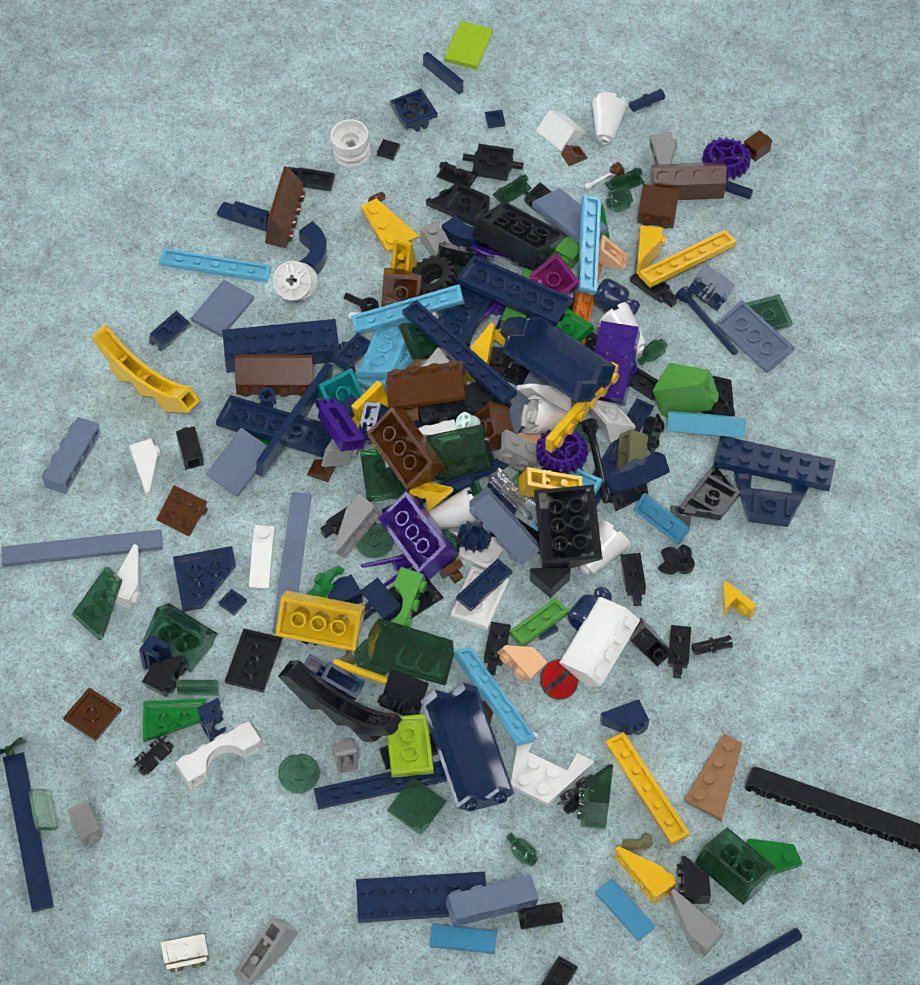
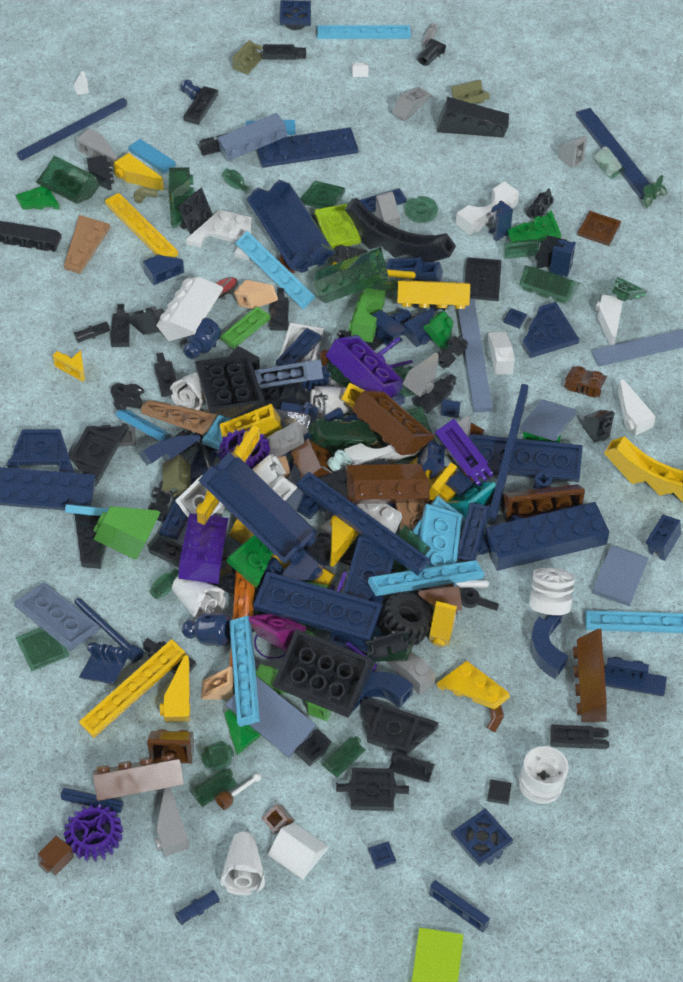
camera: 170 degrees right, 5 degrees down
(197, 898) = (471, 119): none -> black wedge
(318, 562) = (457, 346): none -> black hinge
(336, 493) = (450, 408): none -> dark blue tile
(625, 517) = (184, 417): none -> medium nougat wing

